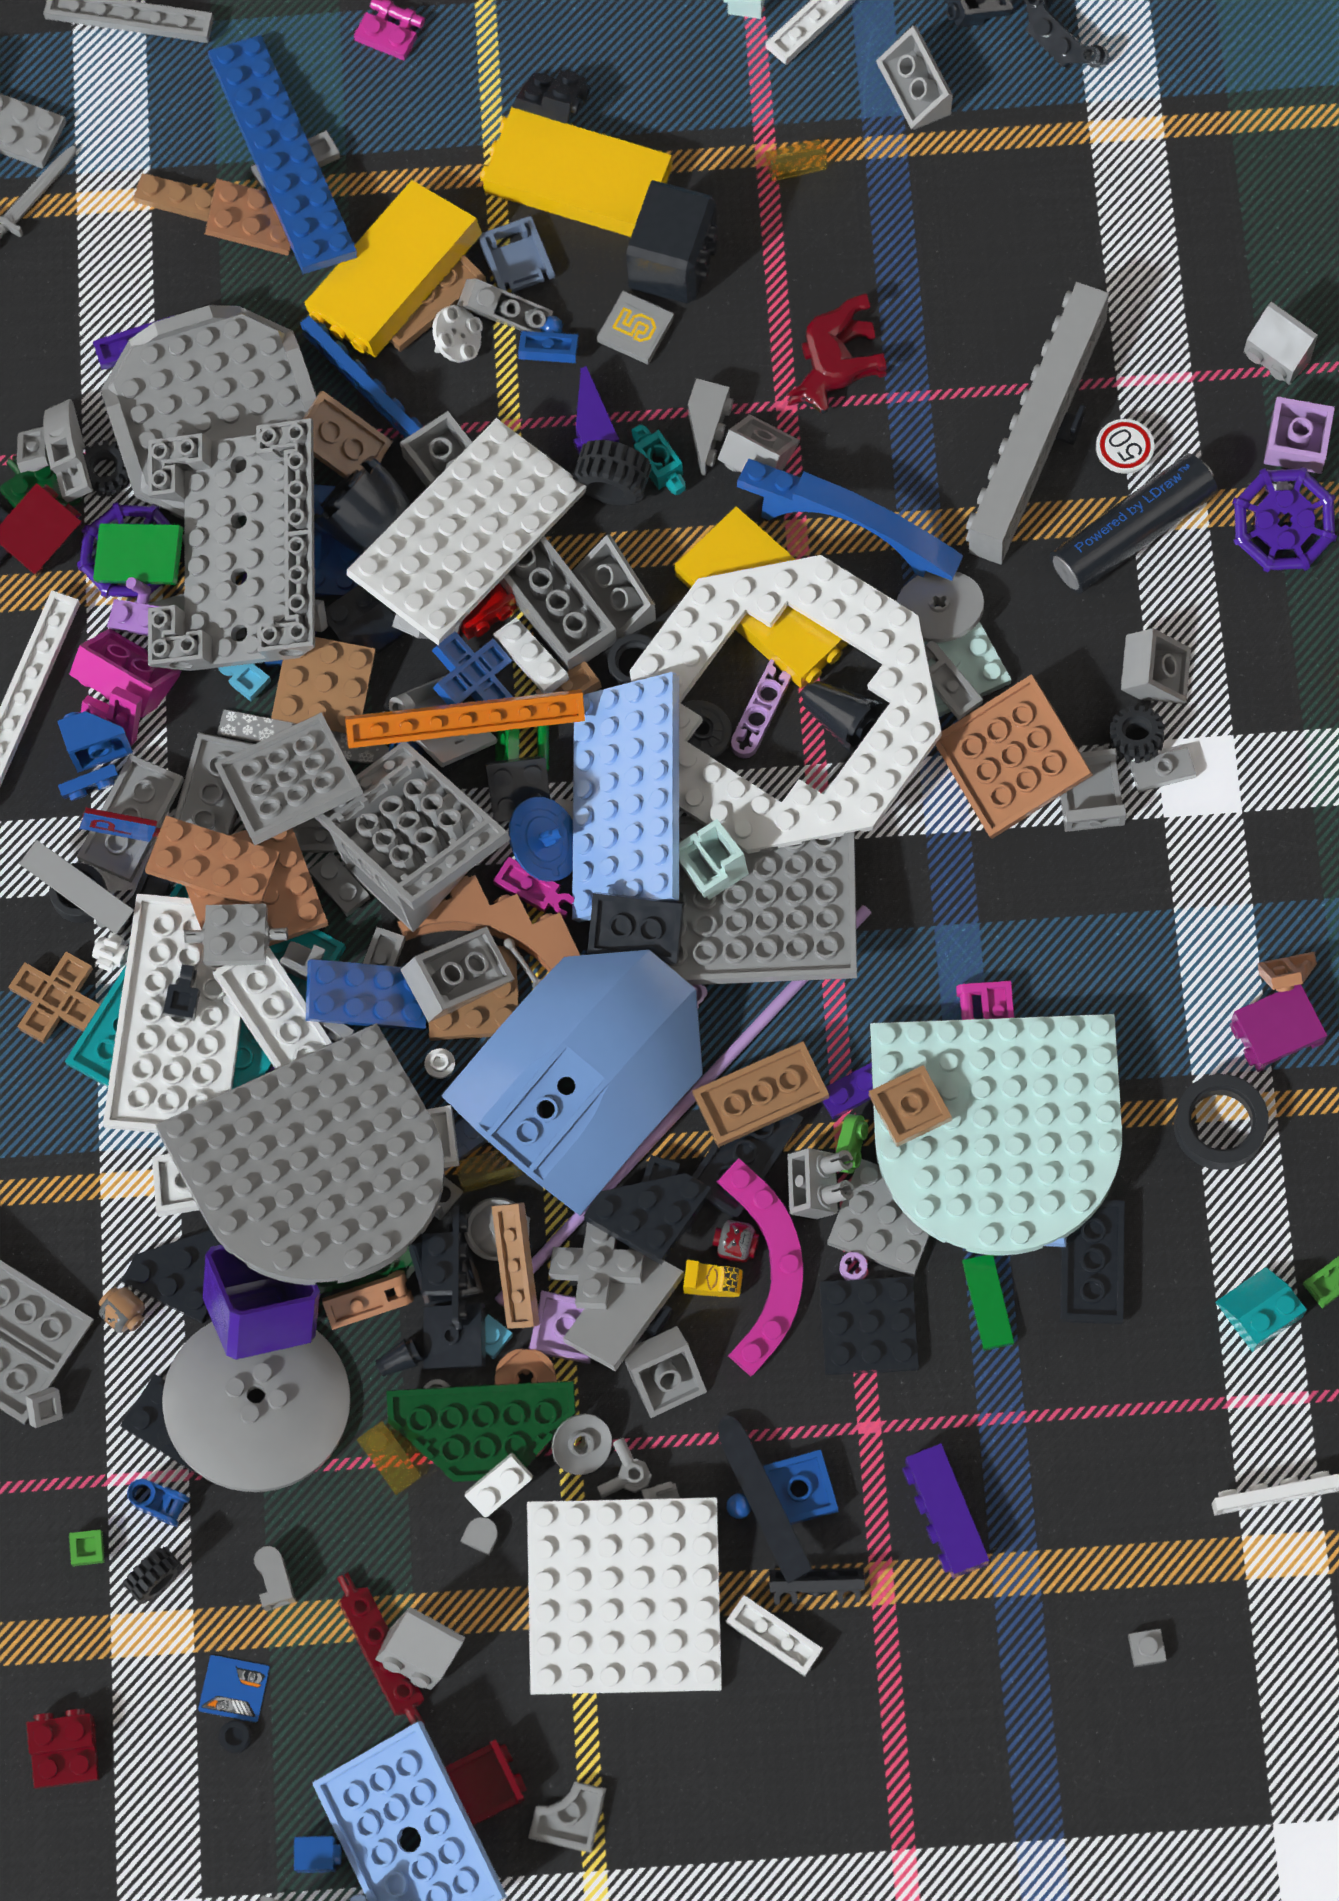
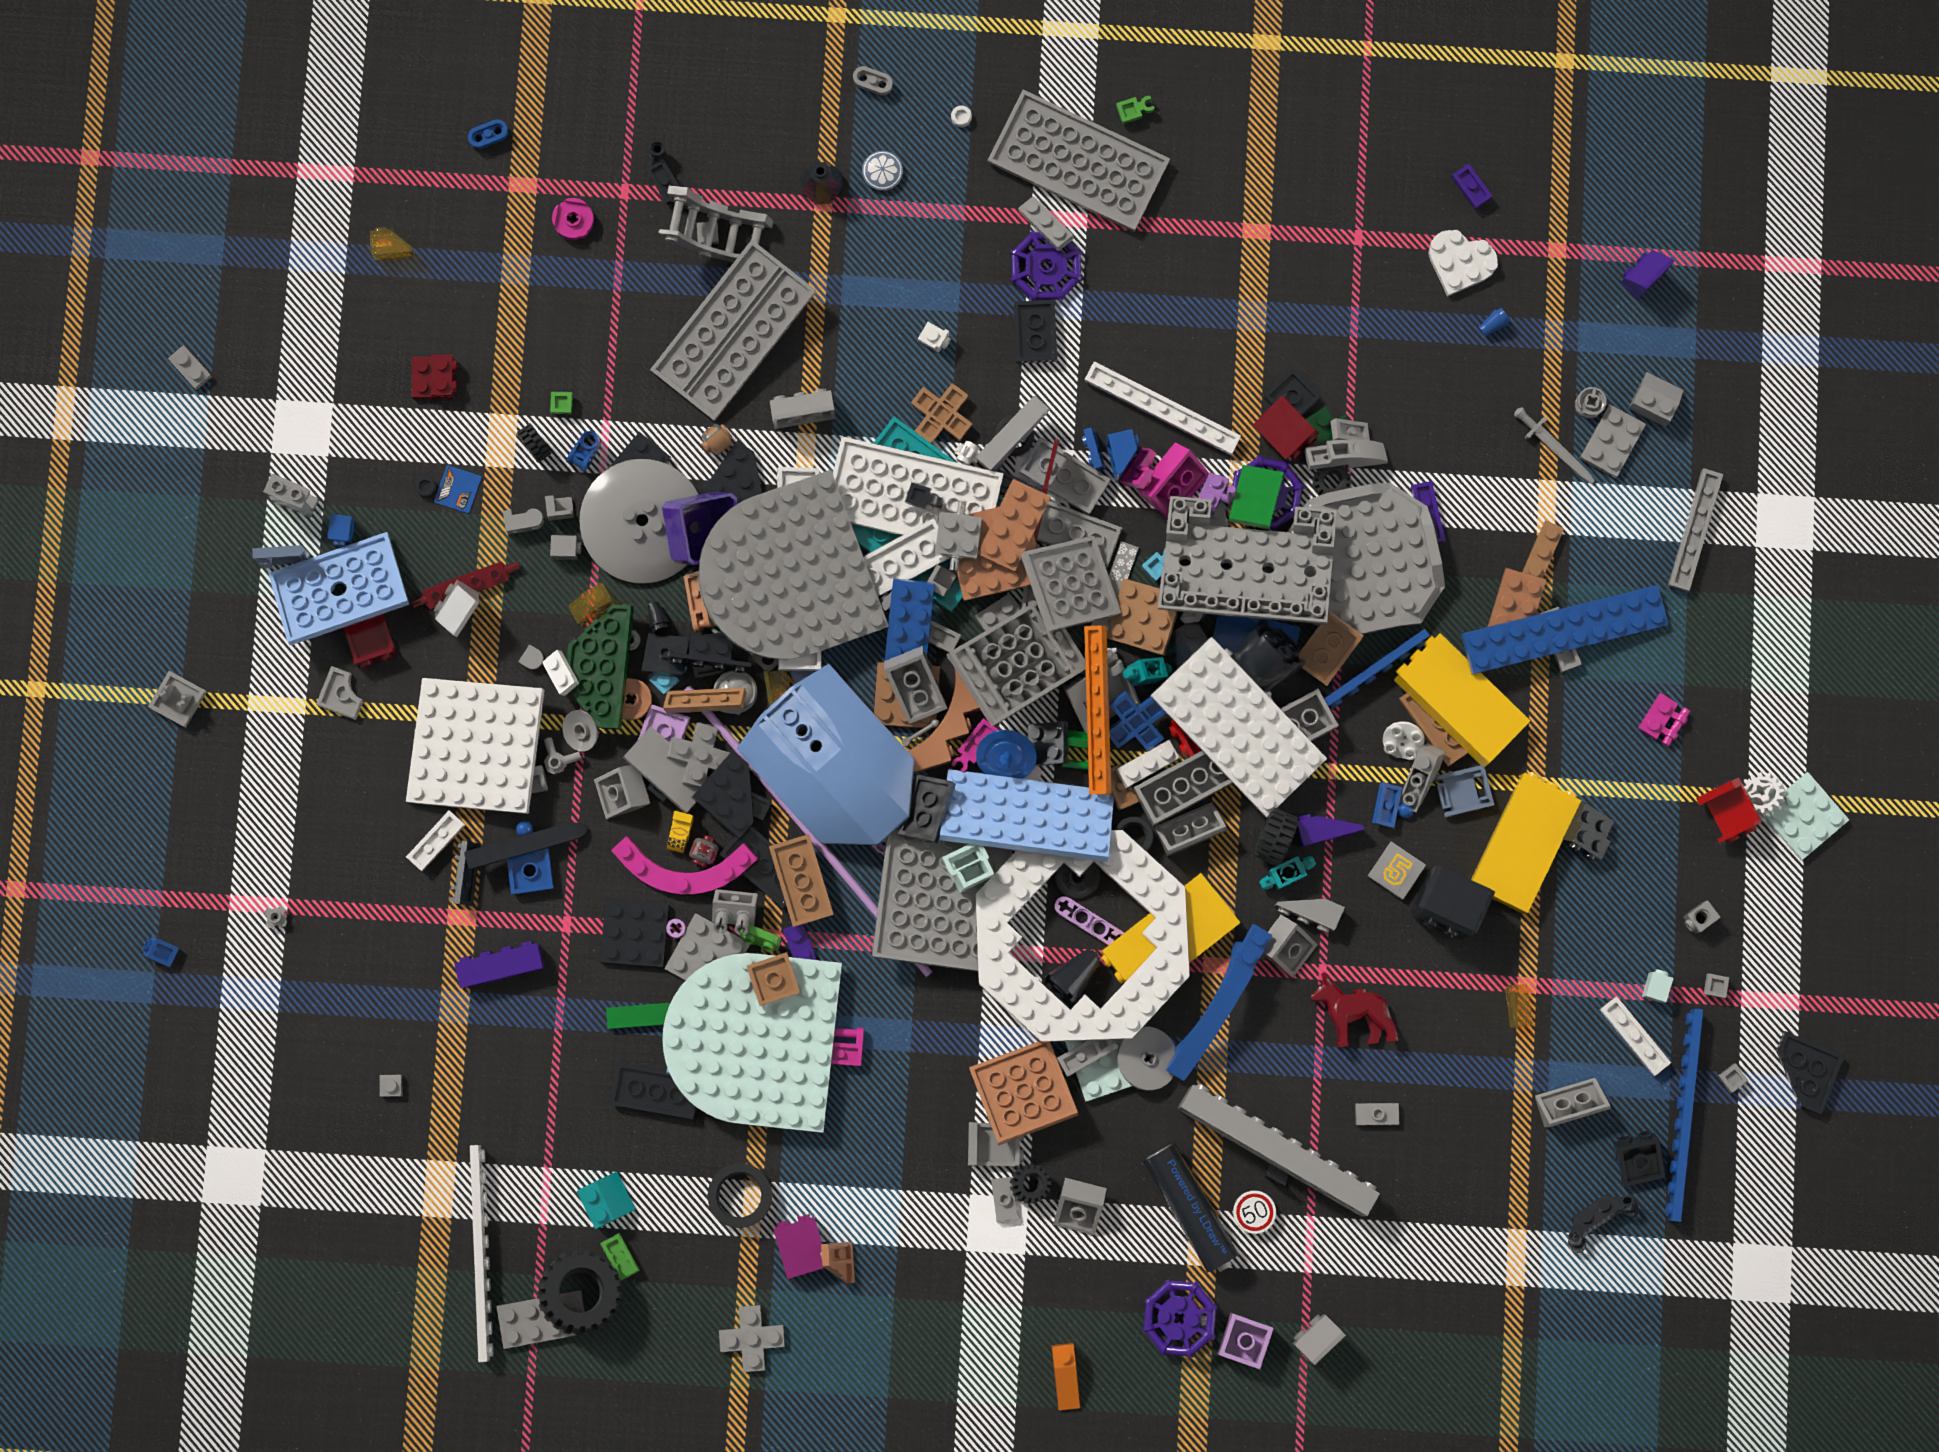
camera: 90 degrees right, 10 degrees up
(44, 1407) = (657, 383): light grey plate -> none
(64, 1190) = (802, 408): none -> light grey slope
(248, 1527) = (559, 508): none -> light grey panel
(308, 1508) = (565, 547): none -> light grey brick
(401, 667) = (1147, 671): none -> teal piece
(440, 1063) = (856, 666): white plate -> none
(919, 1870) = (280, 921): none -> light grey plate
(967, 314) = (1377, 1114): none -> light grey plate

